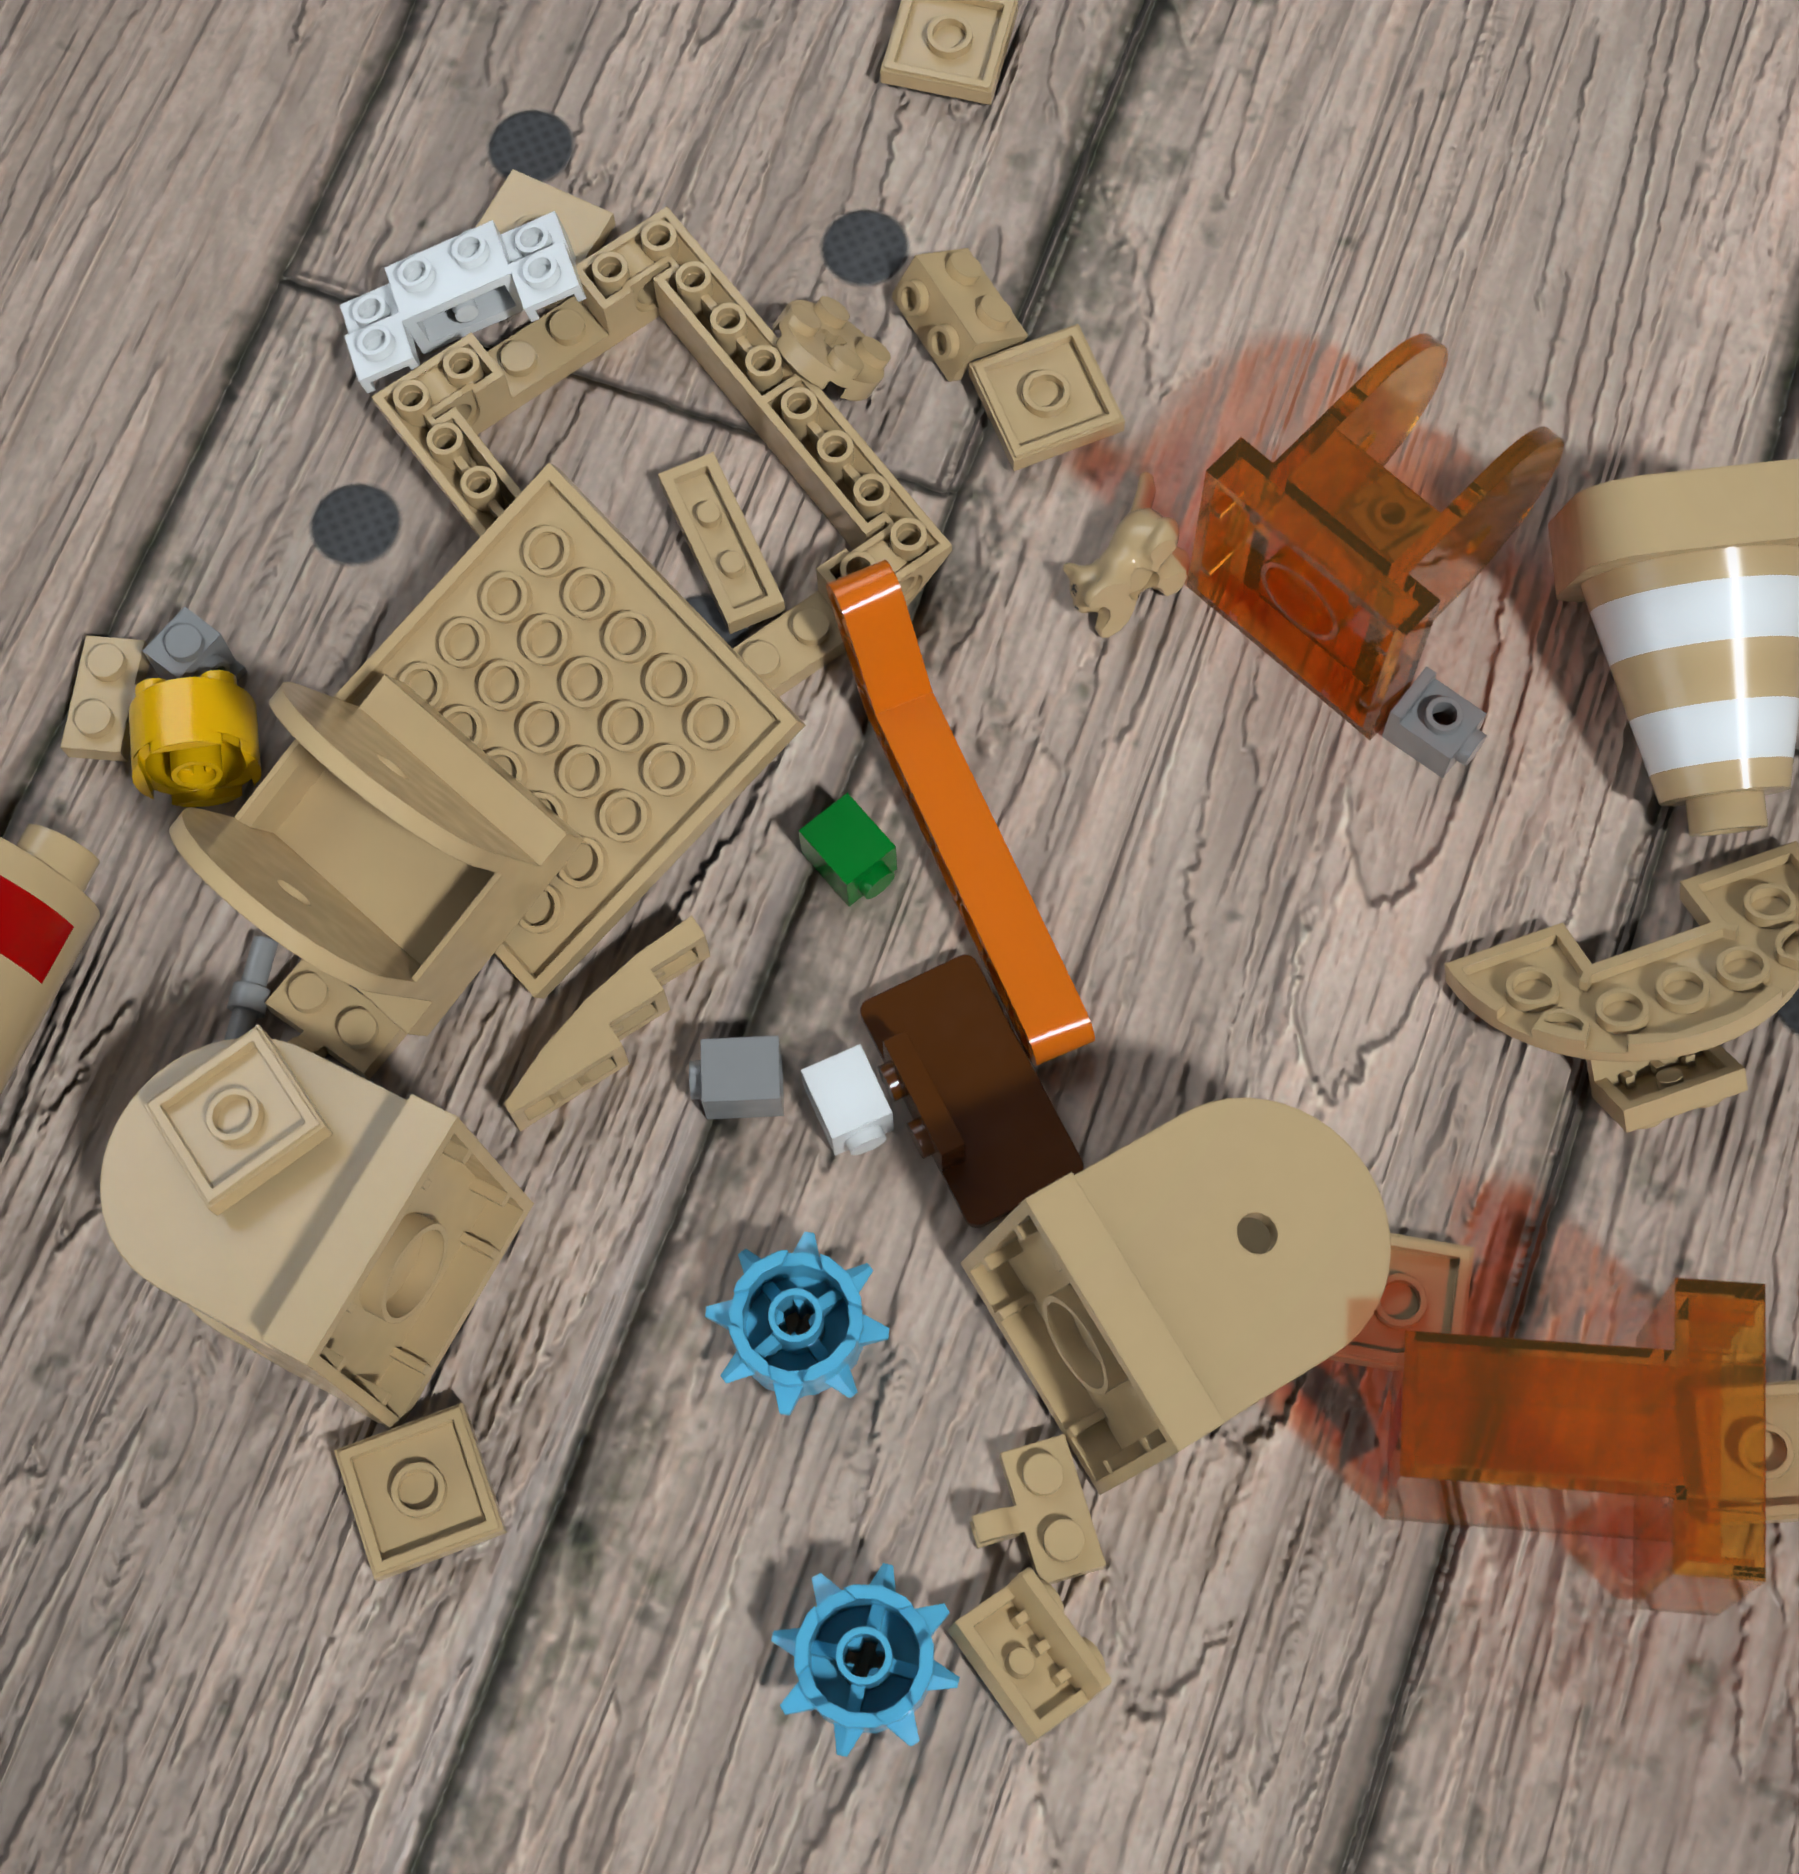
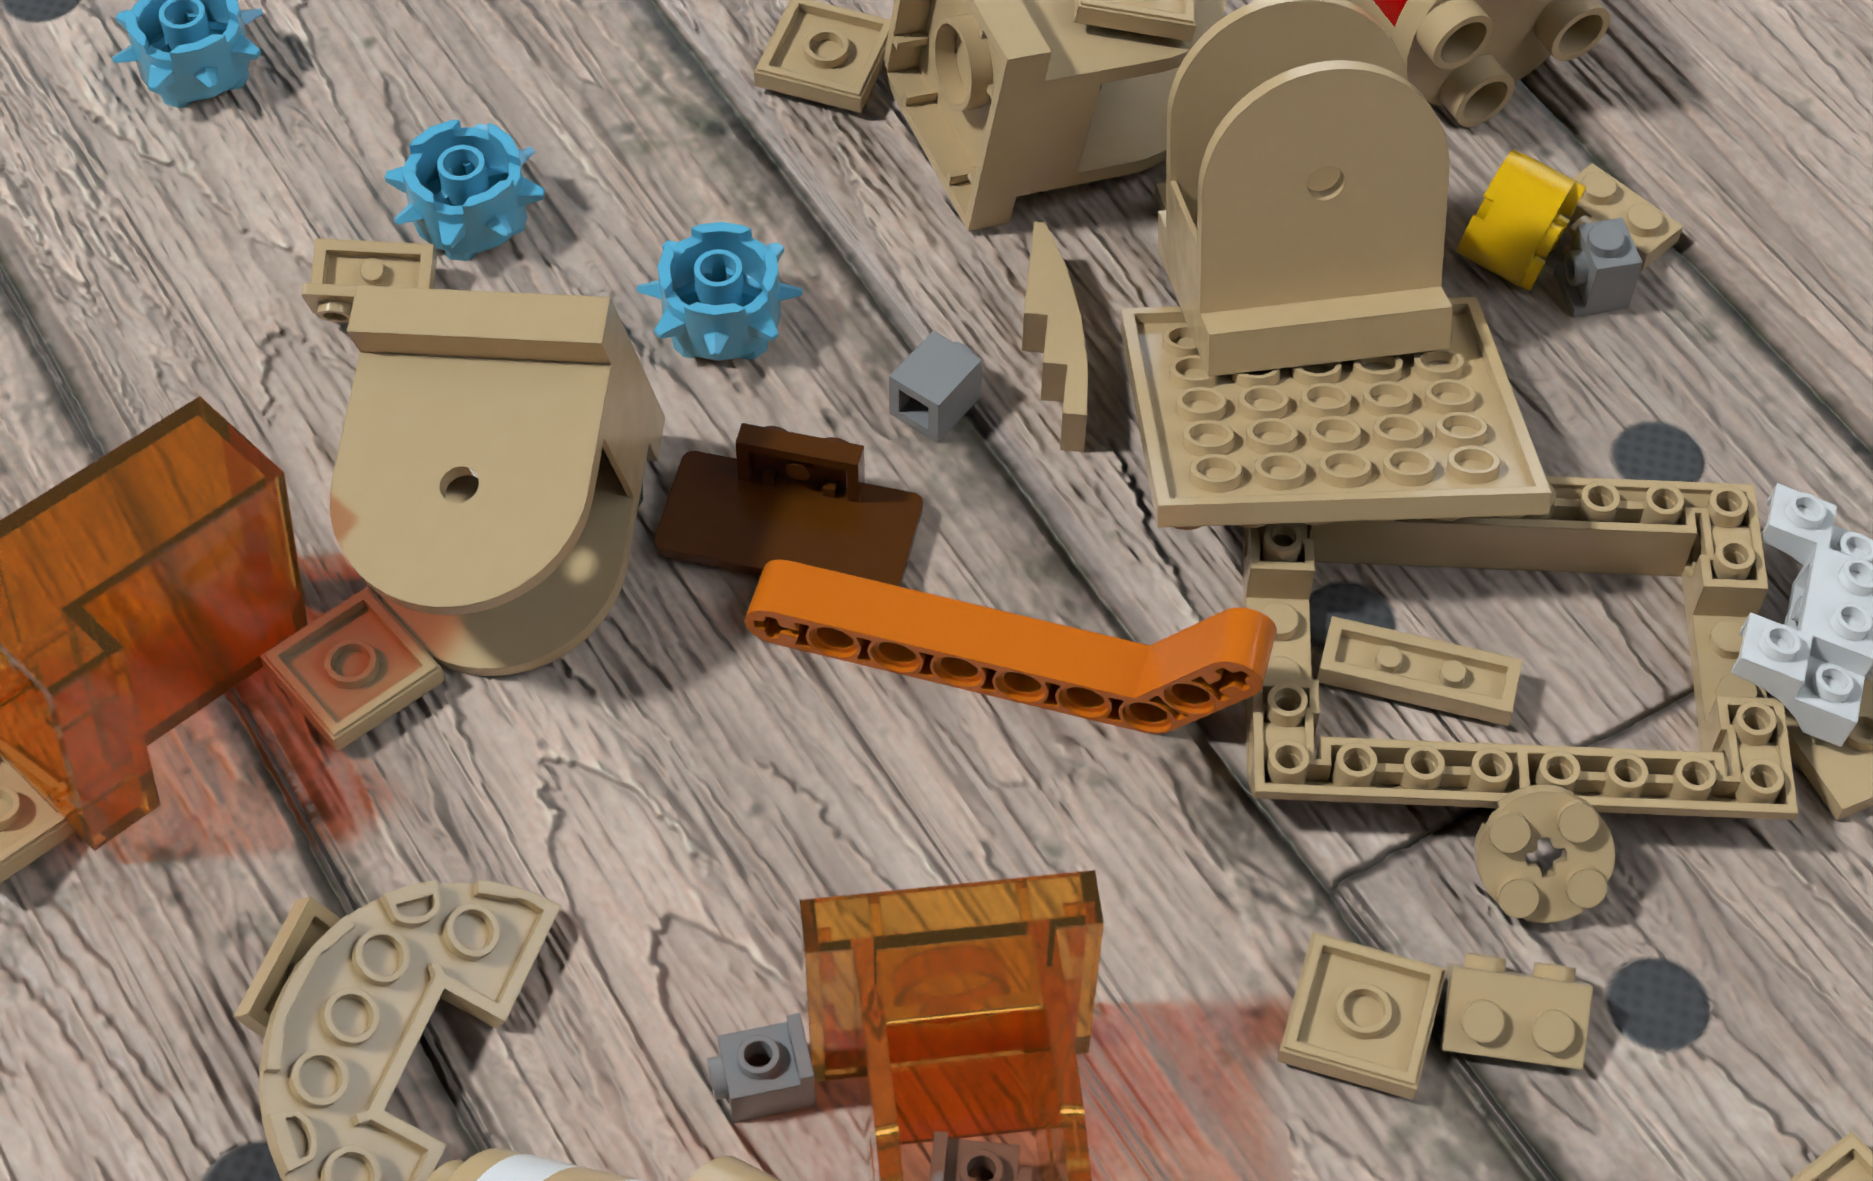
camera: 125 degrees right, 15 degrees down
(848, 1102) = (859, 421): white brick -> none
(849, 851) = (1053, 568): green brick -> none
(1138, 558) = (1135, 957): tan animal -> none

